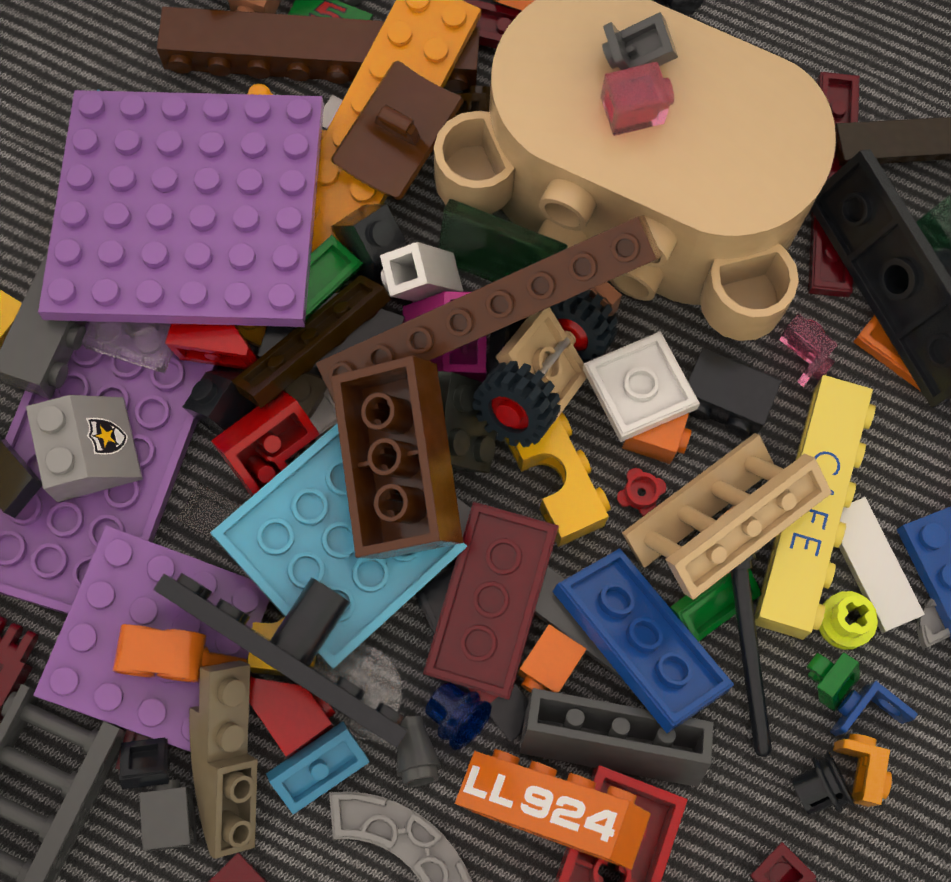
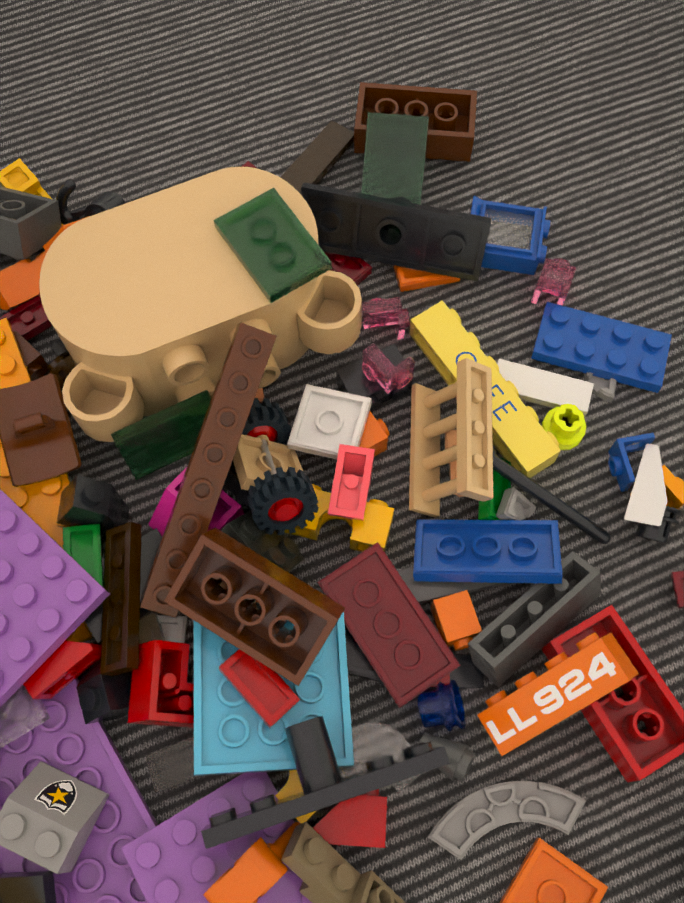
camera: 45 degrees left, 5 degrees down
(317, 767) = (406, 832): dark azure plate -> none
(330, 528) = (259, 687): none -> red tile
(419, 272) = (138, 494): white brick -> none
(596, 453) = (351, 482): none -> coral slope
(636, 98) = (162, 265): clear pink brick -> none
(639, 44) = (132, 236): dark grey bracket -> none
(641, 480) = (395, 470): red plate -> none
(715, 633) = (514, 506): none -> light grey tile
(736, 384) = (380, 369): none -> clear pink bracket
(752, 177) = (272, 245): none -> clear green tile
(833, 679) = (593, 462): green tile -> none
(846, 753) = (649, 491): none -> white sticker

